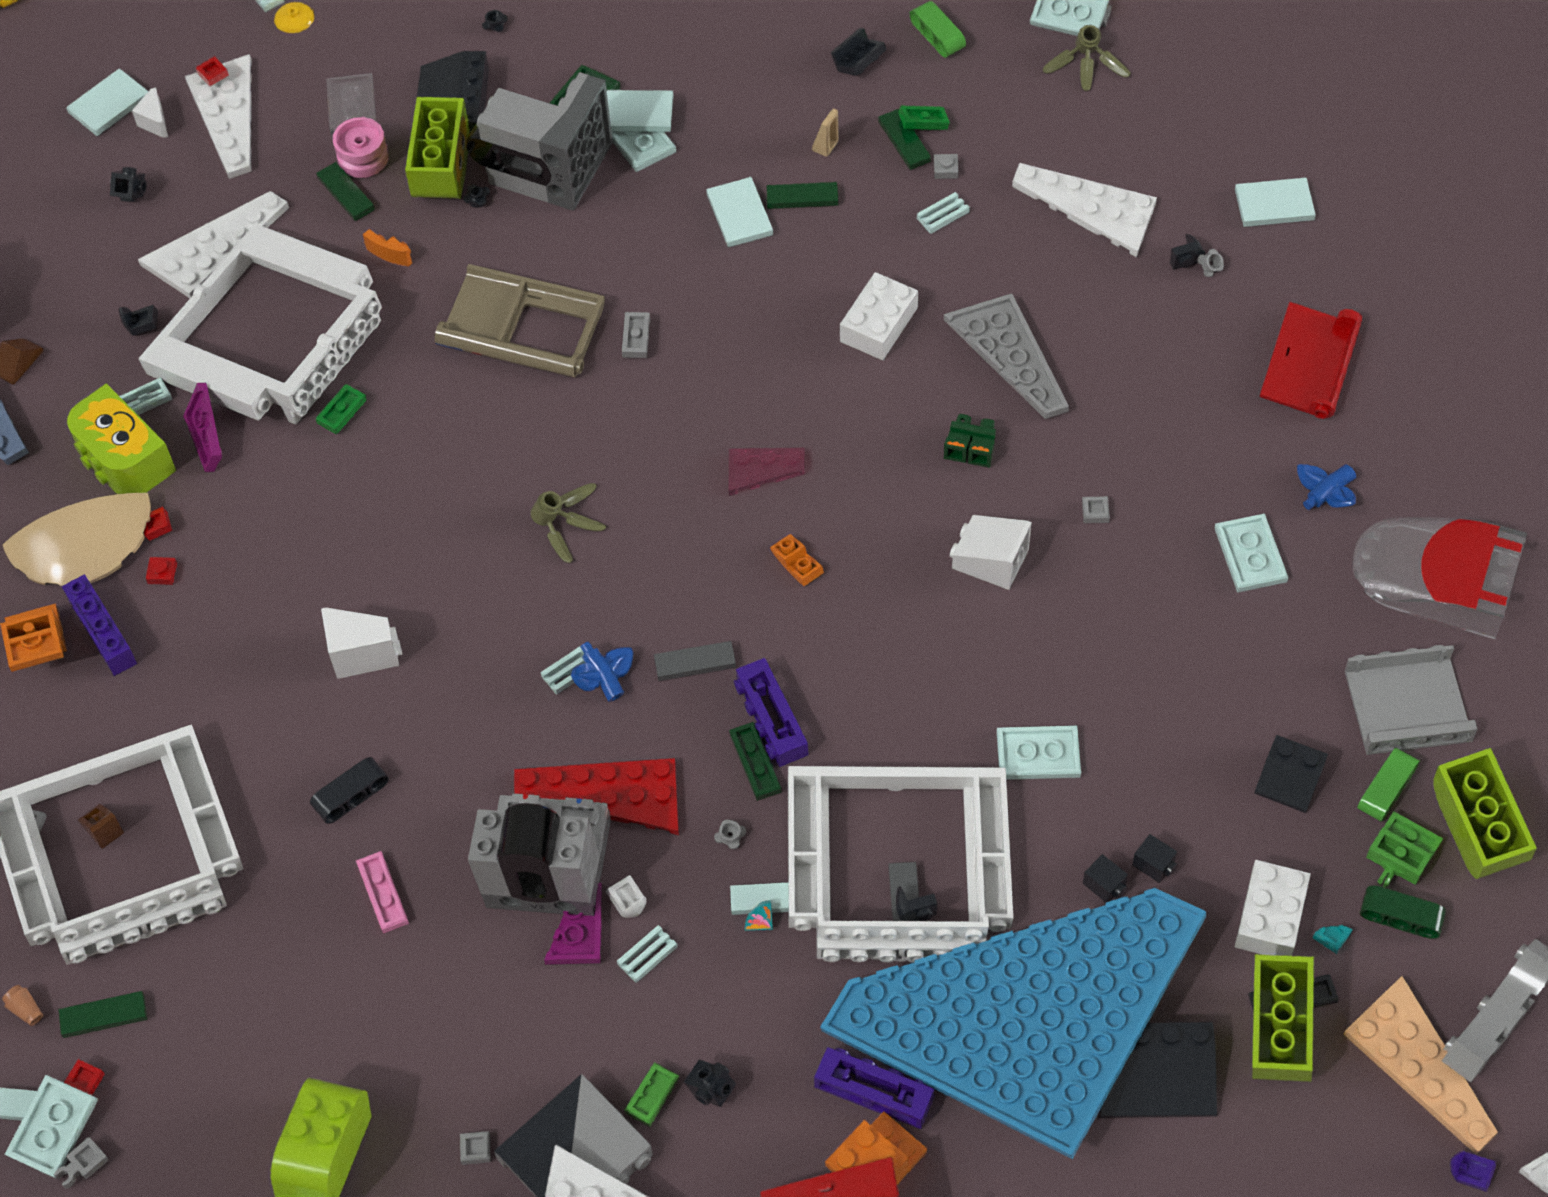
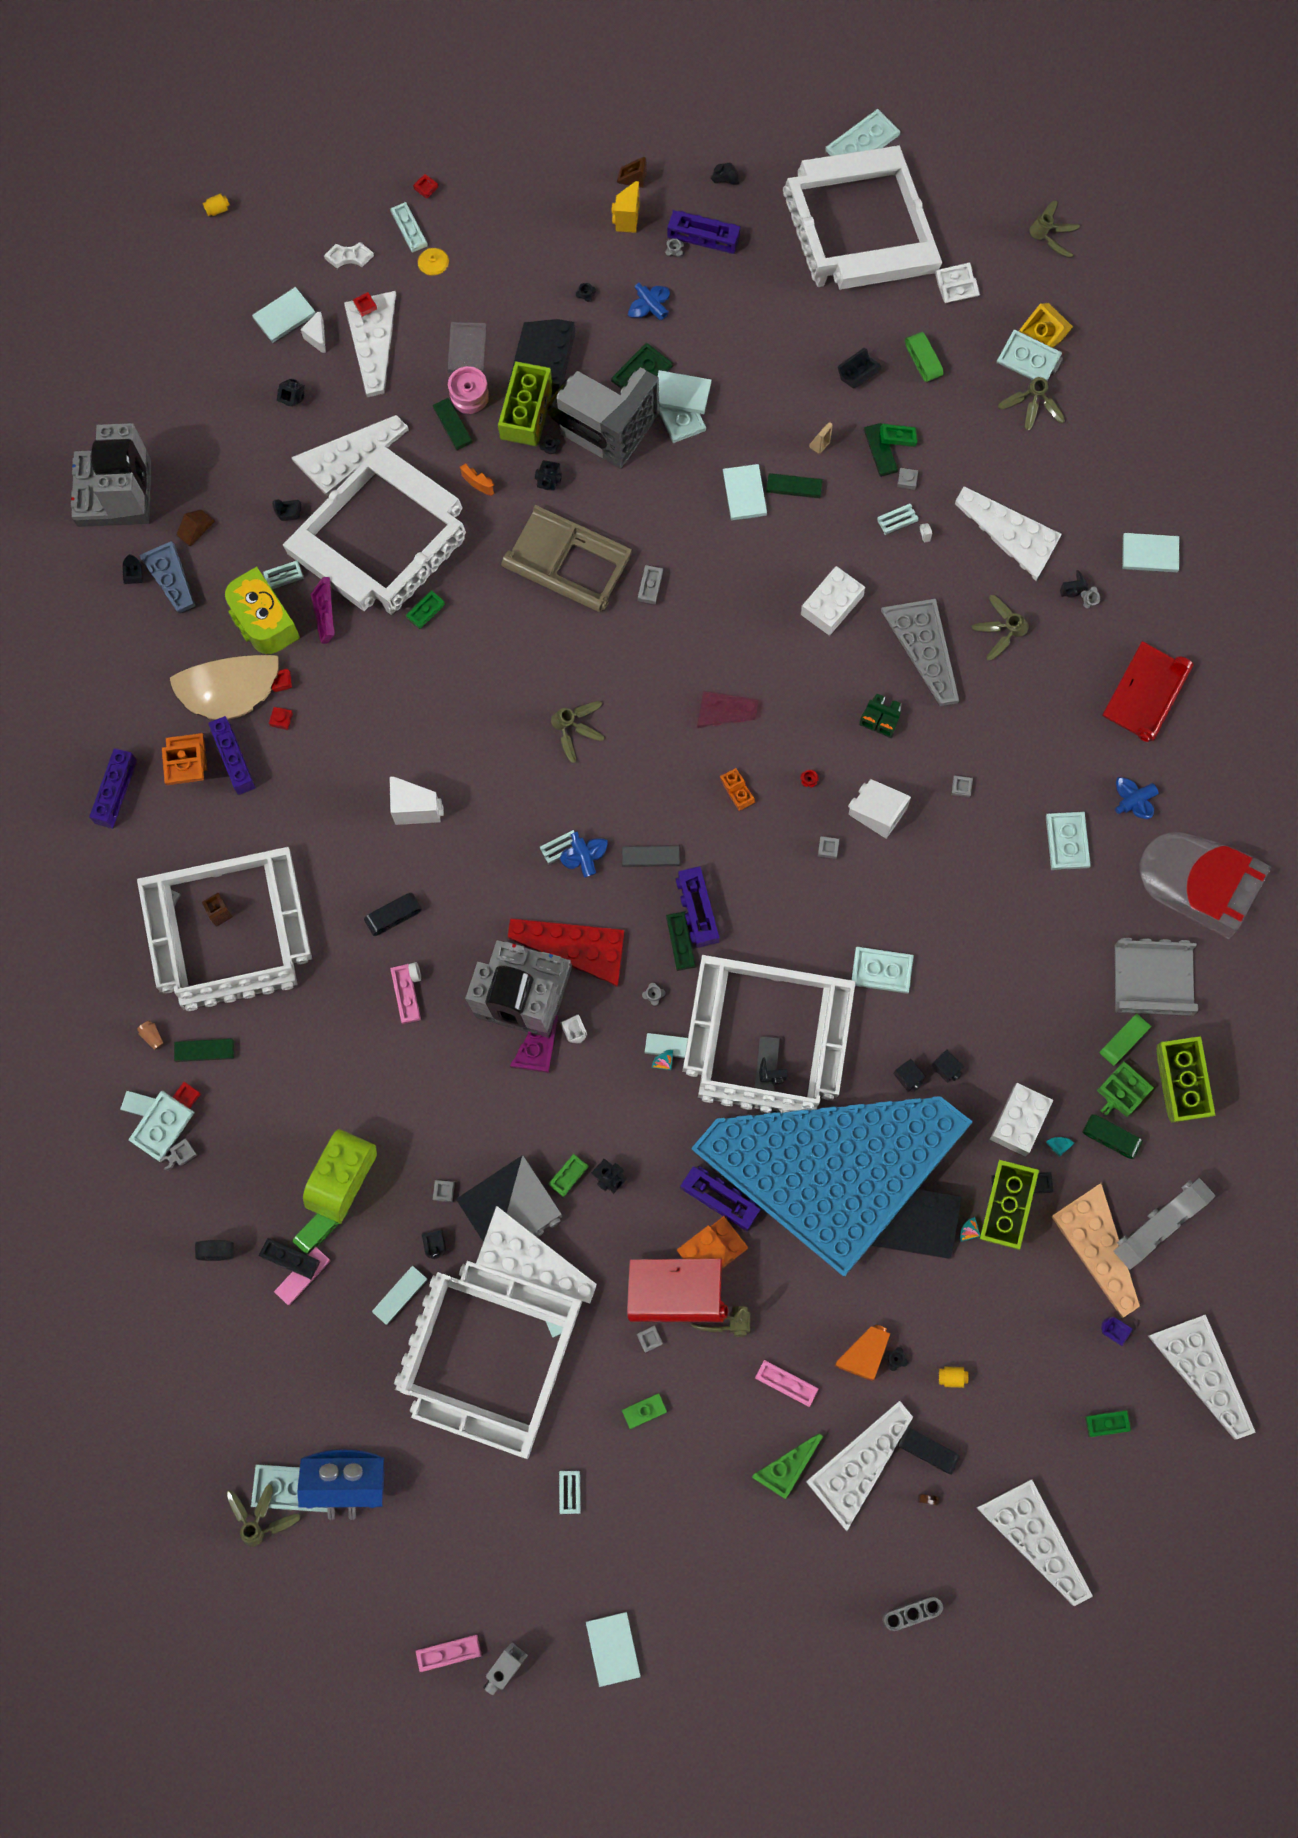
camera: 10 degrees right, 15 degrees up
(174, 27) = (341, 255): none -> white tile
(391, 860) = (414, 972): none -> white tile
(480, 228) = (548, 475): none -> black brick
(578, 19) = (649, 302): none -> blue plant
(640, 946) = (567, 1081): light aqua tile -> none
(891, 525) = (809, 774): none -> red plate
(933, 610) = (828, 847): none -> light grey plate
(982, 221) = (926, 532): none -> white tile
(1121, 304) = (1015, 623): none -> olive plant
(1235, 1072) = (969, 1230): none -> tile
(1291, 773) = (1057, 1019): black slope -> none

